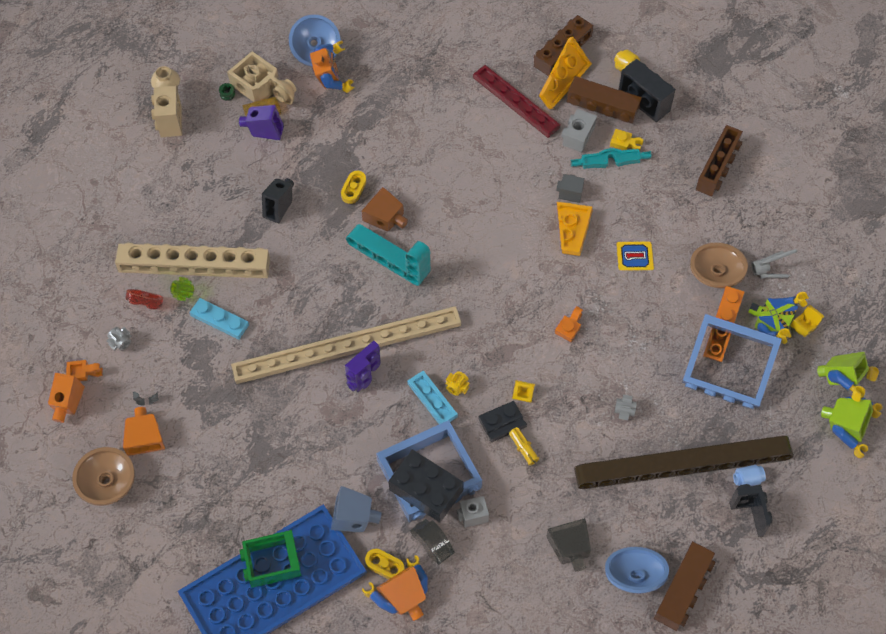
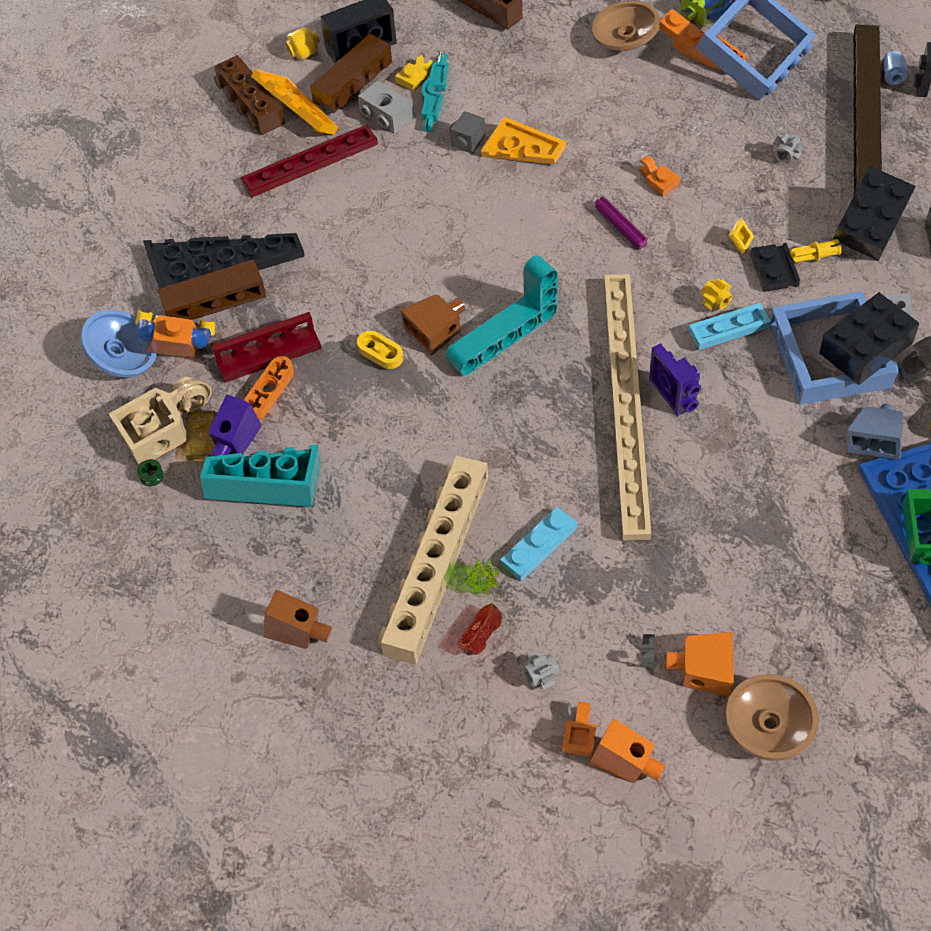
camera: 70 degrees left, 5 degrees down
(127, 194) = (293, 621): none -> dark orange torso
(166, 102) = (147, 539): tan brick -> none
(232, 156) = (263, 477): none -> teal wedge
(277, 199) = (373, 434): black torso -> none
(304, 128) = (270, 376): none -> orange beam
(338, 123) = (250, 359): none -> dark red fence
(372, 78) = (214, 290): none -> reddish brown brick
(404, 69) = (181, 261): none -> black wing
(515, 308) = (621, 223): none -> magenta axle
(563, 476) = (874, 213): none -> black brick
(635, 256) = (578, 102): sticker -> none

